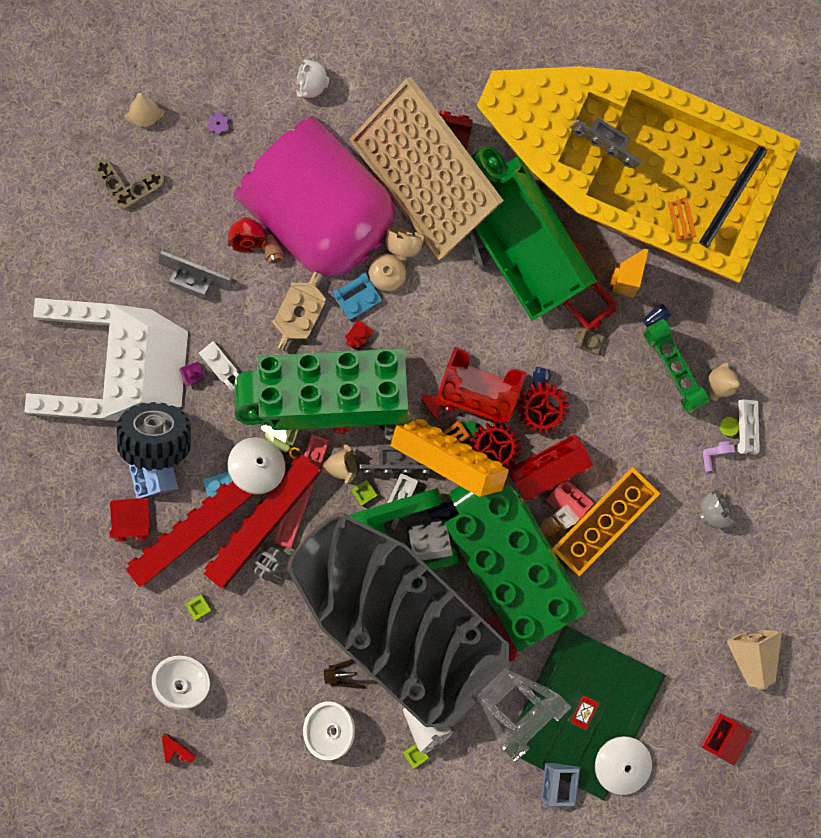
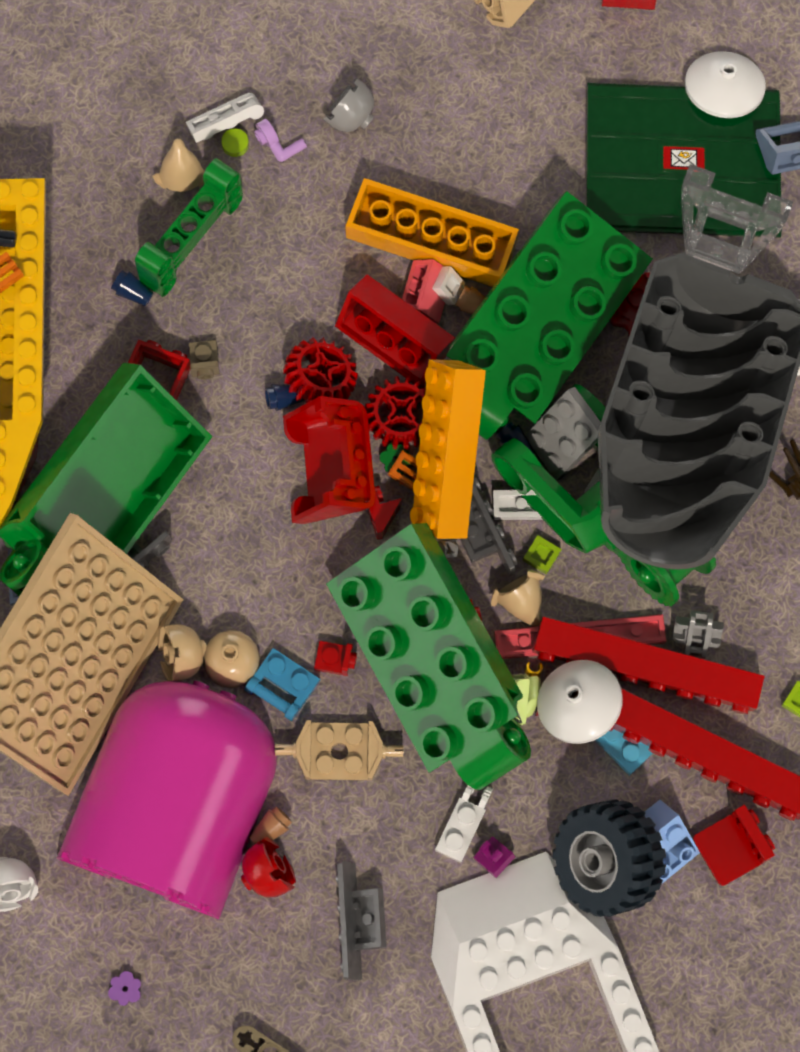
camera: 120 degrees left, 10 degrees down
(628, 276) = (91, 330): light orange slope -> none

